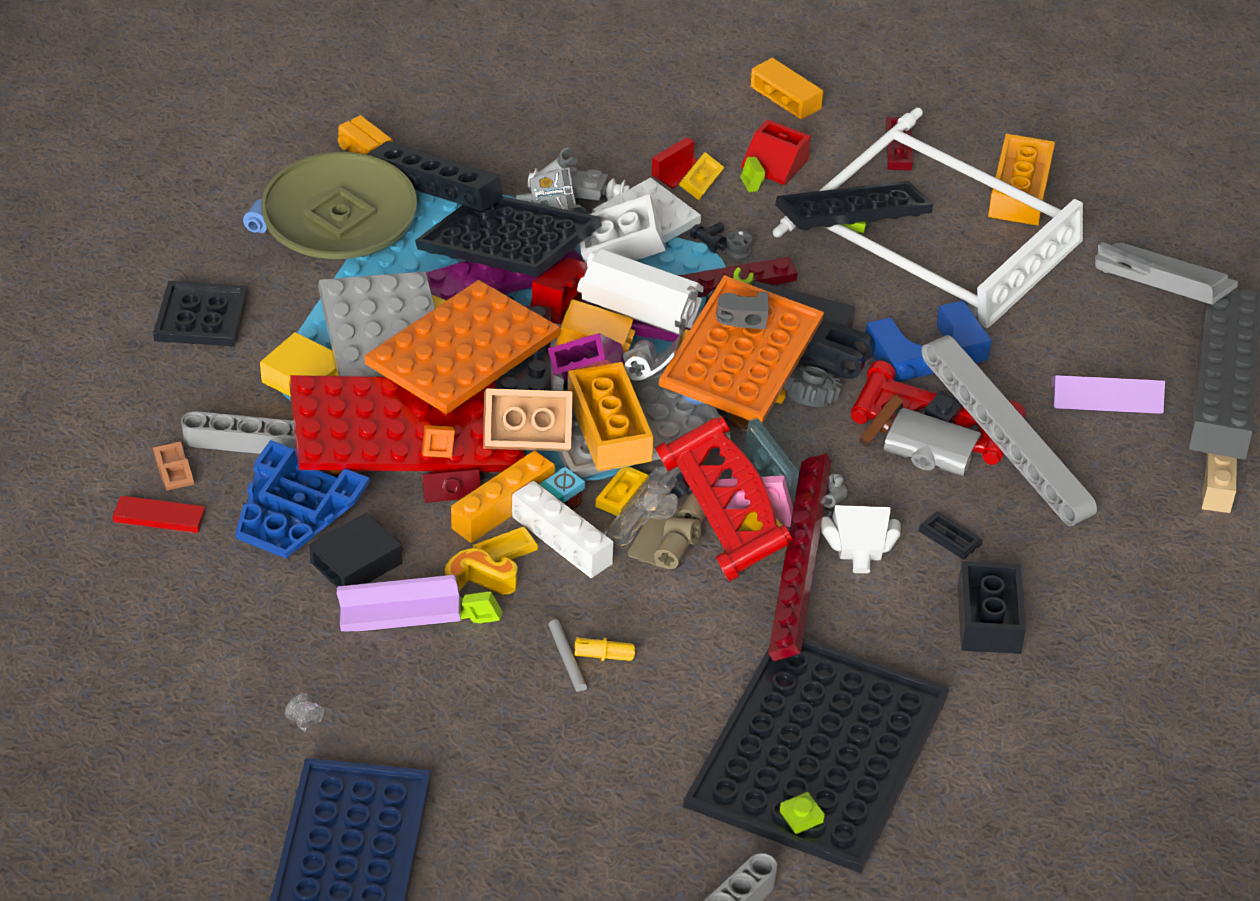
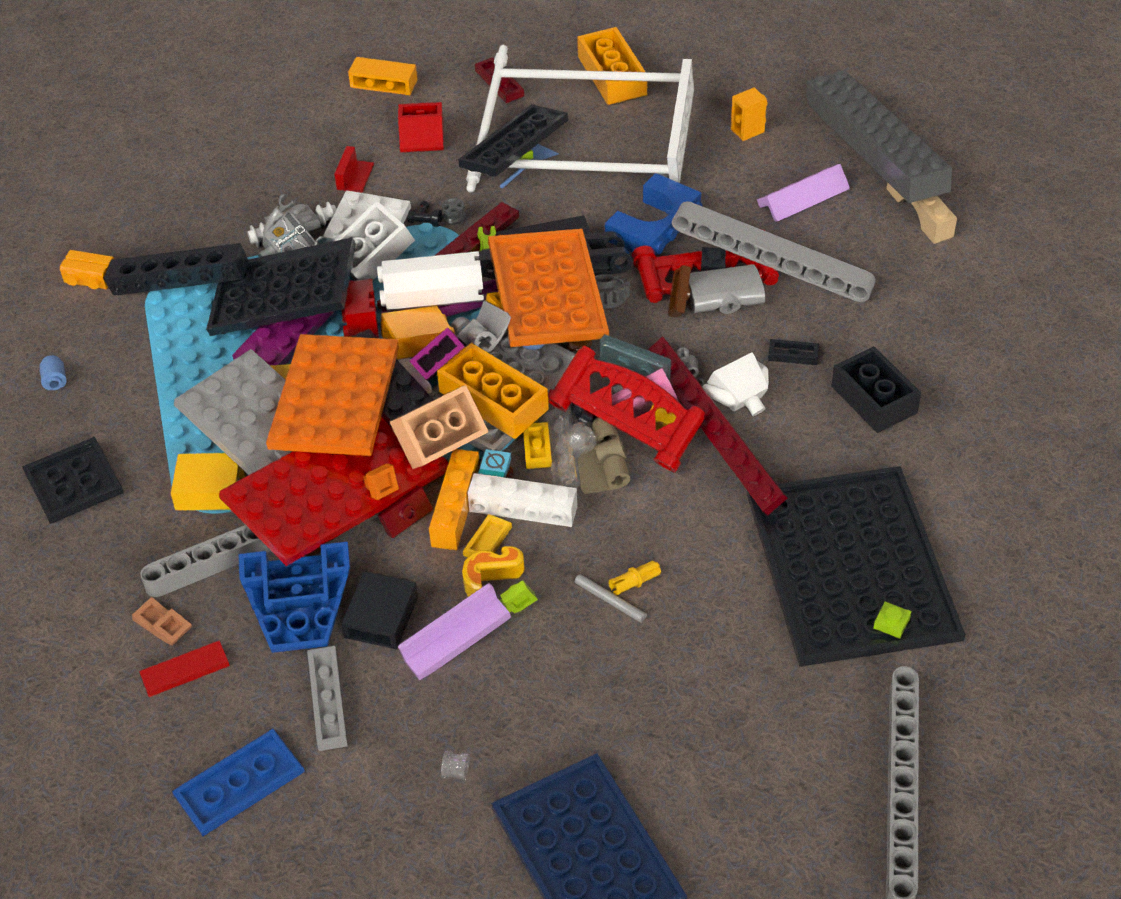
camera: 30 degrees left, 5 degrees up
(124, 626) = (238, 782): none -> blue tile
(249, 600) = (327, 698): none -> light grey plate
(368, 191) = (88, 322): olive dish -> none
(701, 176) = (379, 171): yellow plate -> none
(743, 311) = (531, 256): dark grey leg -> none
(752, 174) = (416, 152): lime plate -> none
(875, 231) = (539, 153): none -> medium blue piece
(1116, 288) = (748, 114): none -> light orange brick
(1164, 272) = (773, 85): light grey piece -> none

